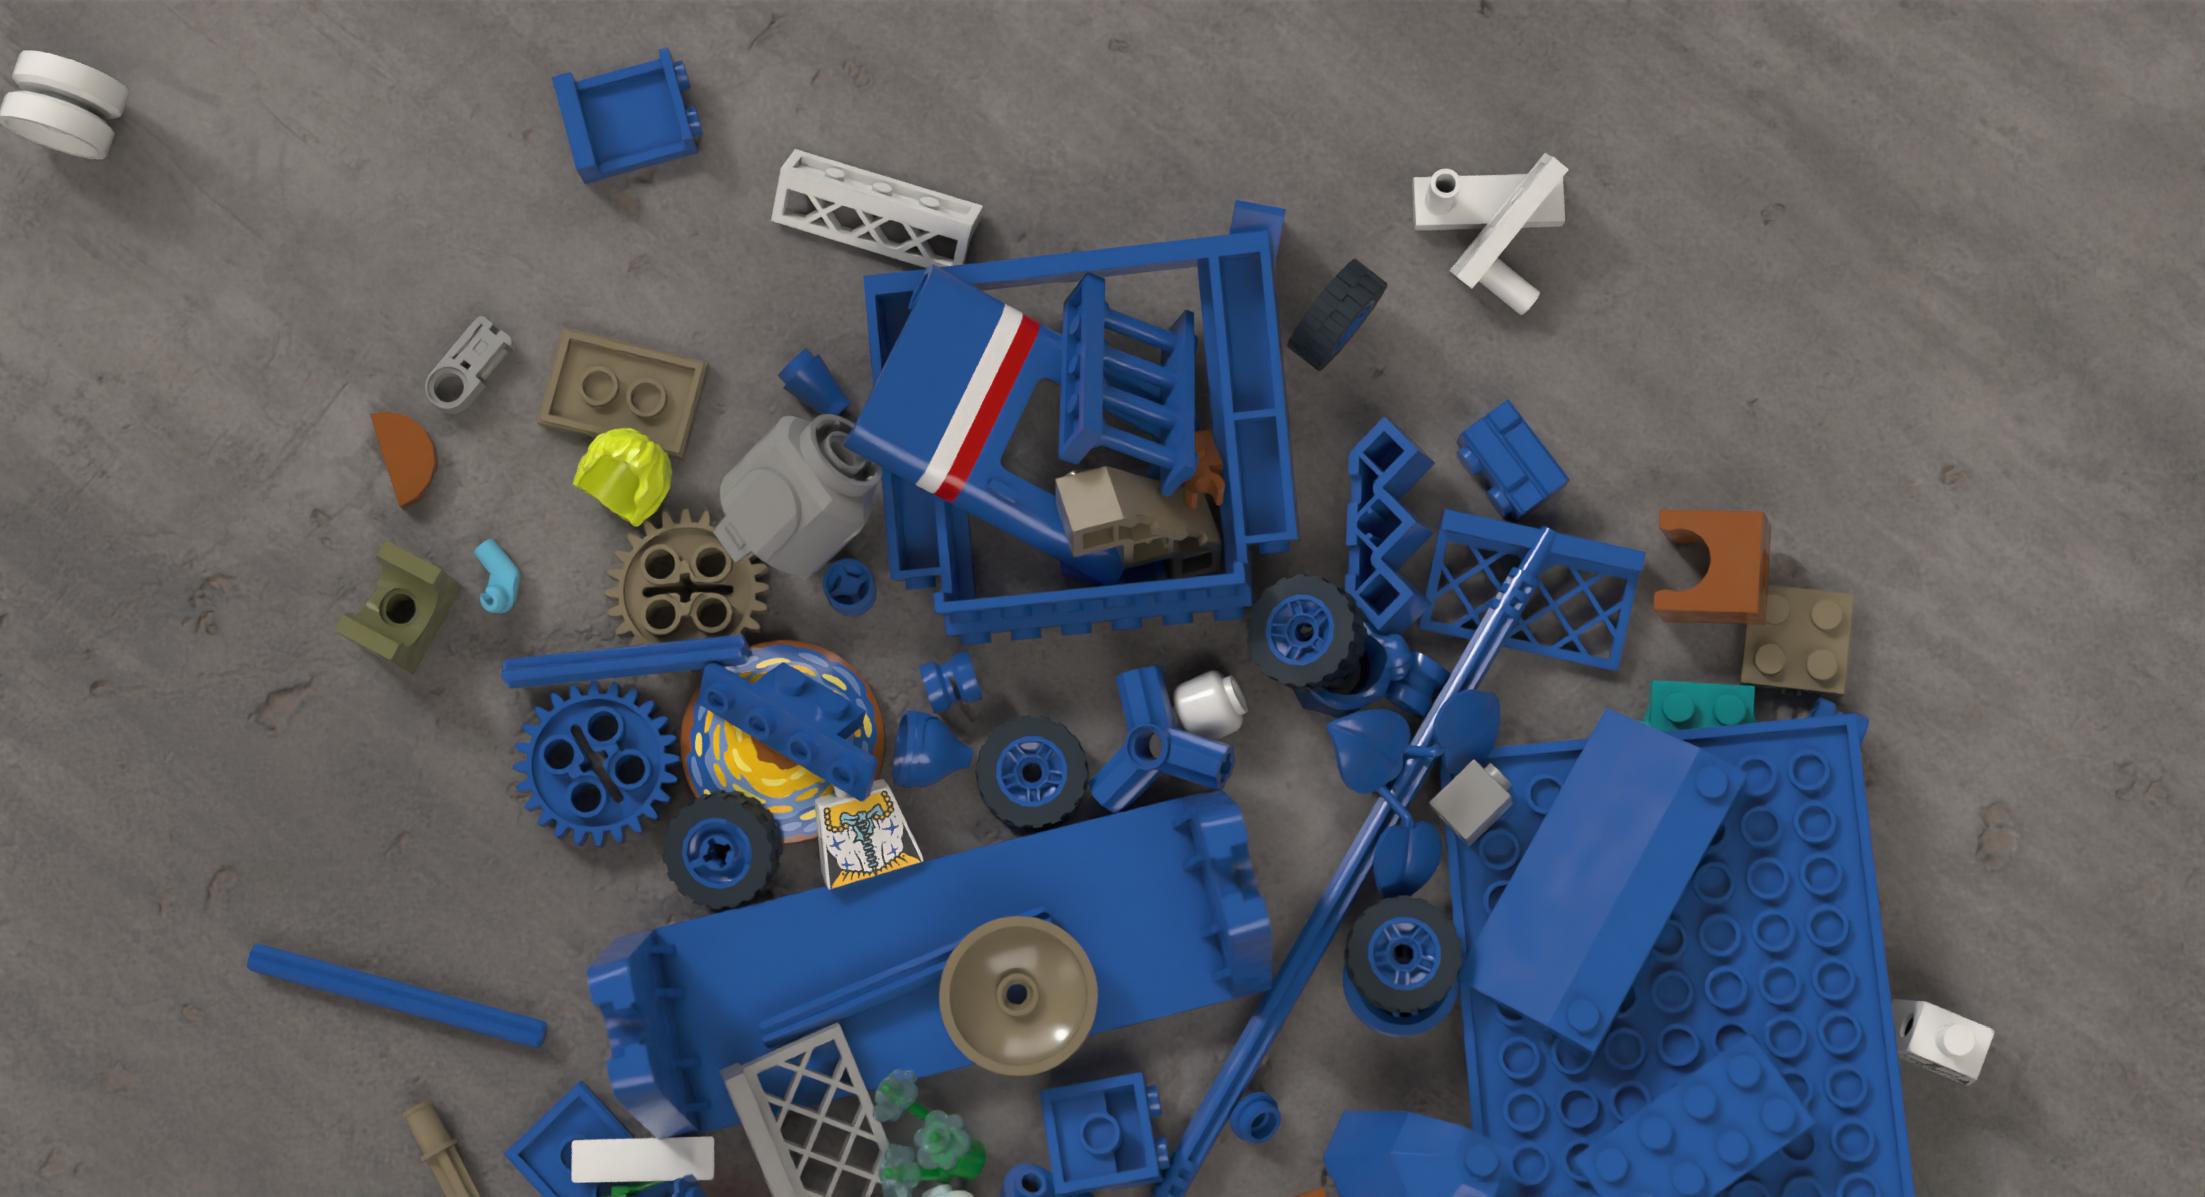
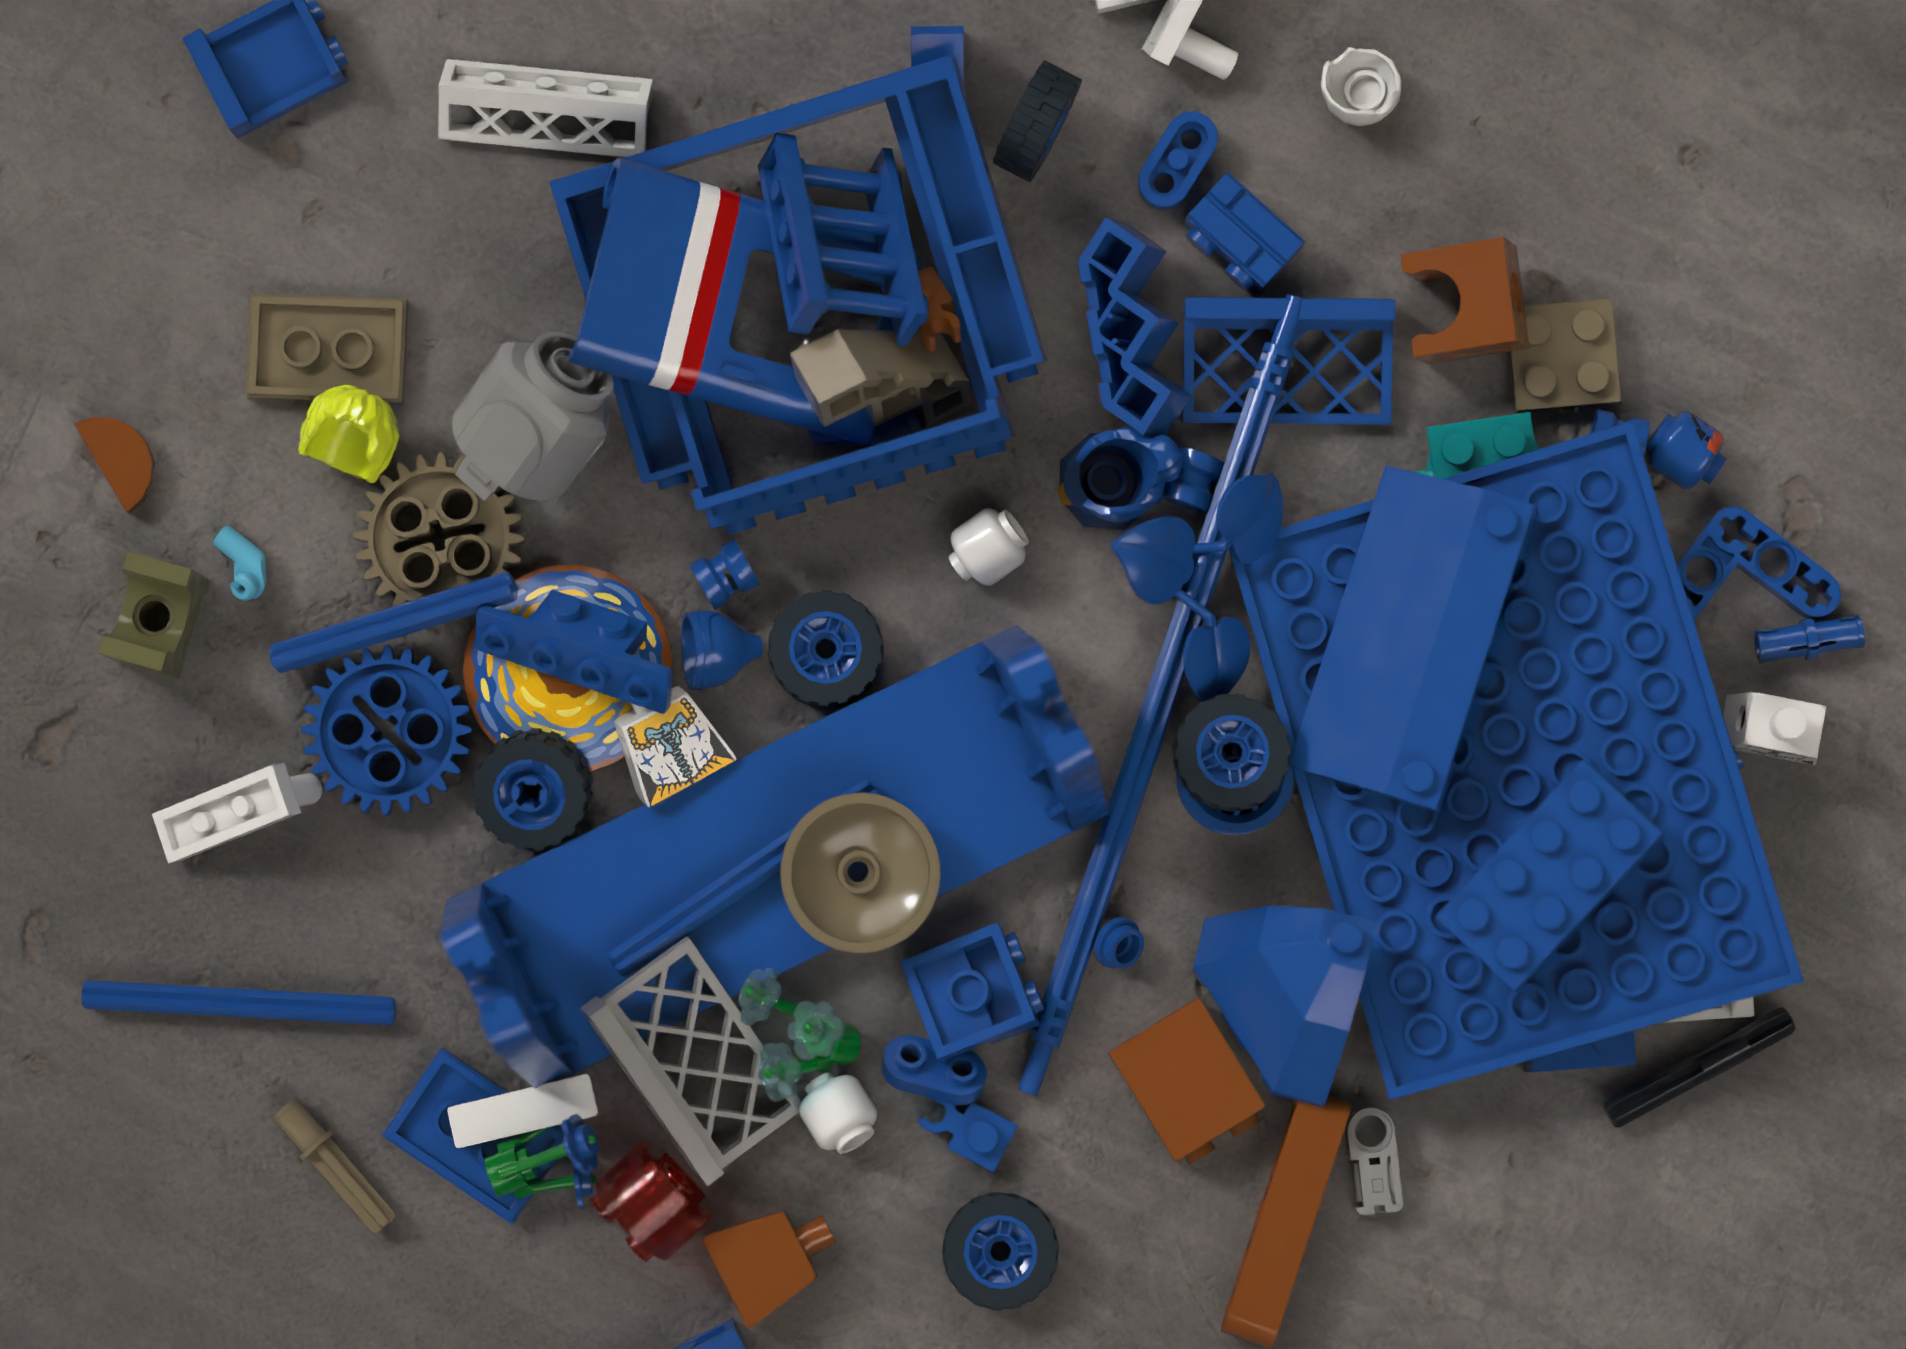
camera: 15 degrees left, 5 degrees up
(434, 809) = (233, 810): none -> white piece
(471, 360) = (163, 347): light grey piece -> none
(814, 384) = (521, 300): blue cone -> none
(846, 579) = (596, 493): blue wheel -> none
(1182, 754) = (973, 597): blue piece -> none
(1280, 644) = (1046, 467): black wheel -> none
(1461, 382) = (1177, 162): none -> blue plate
(1473, 801) = (1271, 586): light grey brick -> none
(1651, 346) = (1361, 86): none -> white hair
(1899, 754) = (1686, 450): none -> blue head
(1919, 864) = (1728, 556): none -> blue beam
(1985, 961) = (1809, 638): none -> blue pin

